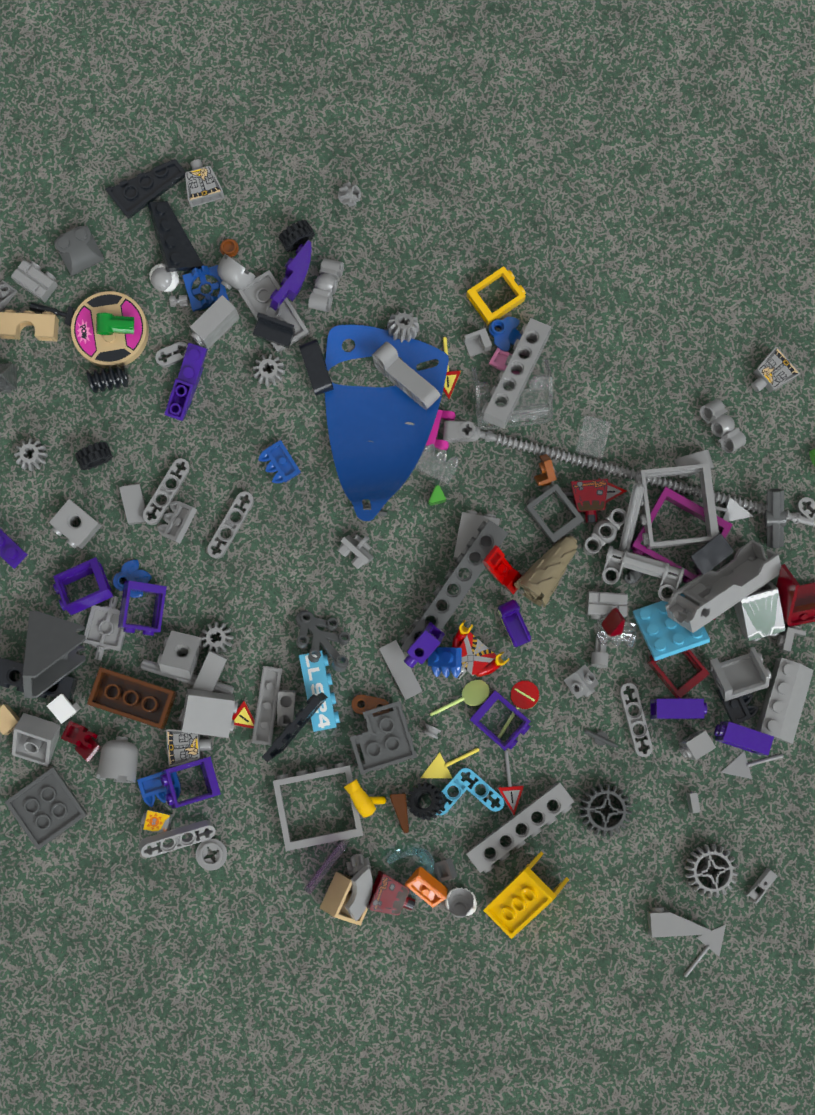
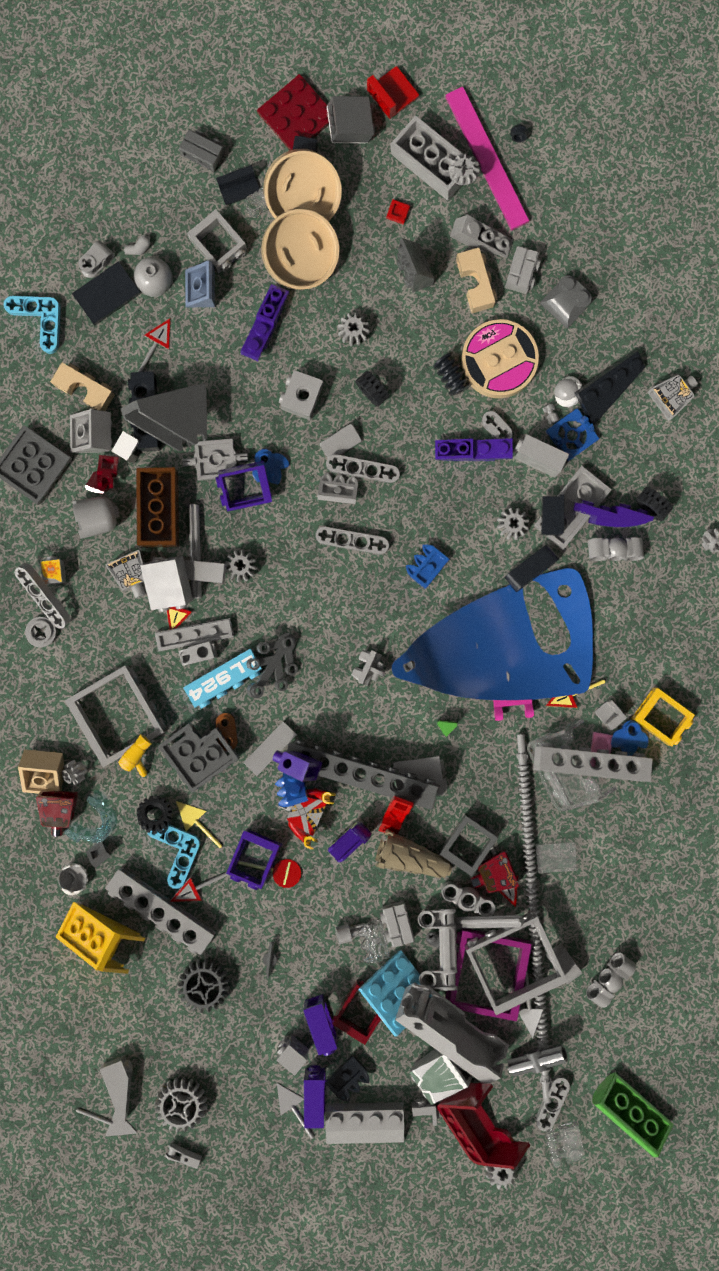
camera: 75 degrees right, 5 degrees up
(40, 308) = (498, 289): black piece -> none
(76, 573) = (256, 412): dark purple window -> none
(108, 324) = (503, 358): green piece -> none
(137, 192) = (643, 336): black wing -> none
(152, 786) = (87, 561): blue plate -> none
(176, 645) = (219, 529): light grey brick -> none
(209, 778) = (106, 607): dark purple window -> none
(229, 247) = (619, 443): dark orange plate -> none
(233, 274) = (595, 457): light grey cylinder -> none
(294, 727) = (178, 667): black wing -> none
(326, 866) = (62, 743): clear purple tile -> none
(361, 893) = (48, 783): light grey tile -> none
(400, 807) = (144, 790): reddish brown slope -> none
(403, 326) = (600, 637): light grey gear -> none
(404, 377) = (551, 655): light grey beam -> none
(427, 887) = (76, 842): orange slope -> none
(431, 731) = (222, 797): light grey bush -> none
(436, 465) = (476, 716): clear plate -> none
(457, 431) = (516, 725): light grey piece -> none
(473, 694) = (270, 825): yellowish green piece -> none
(547, 471) = (505, 825): dark orange bracket -> none
(581, 682) = (315, 924): light grey brick -> none
(613, 623) = (381, 938): dark red slope -> none
(633, 720) = (298, 986): light grey beam -> none
(693, 802) = (238, 1067): light grey tile -> none
(711, 554) = (478, 1011): black panel -> none
(740, 675) = (374, 1074): light grey panel -> none
(774, 372) = (682, 1013): light grey torso -> none

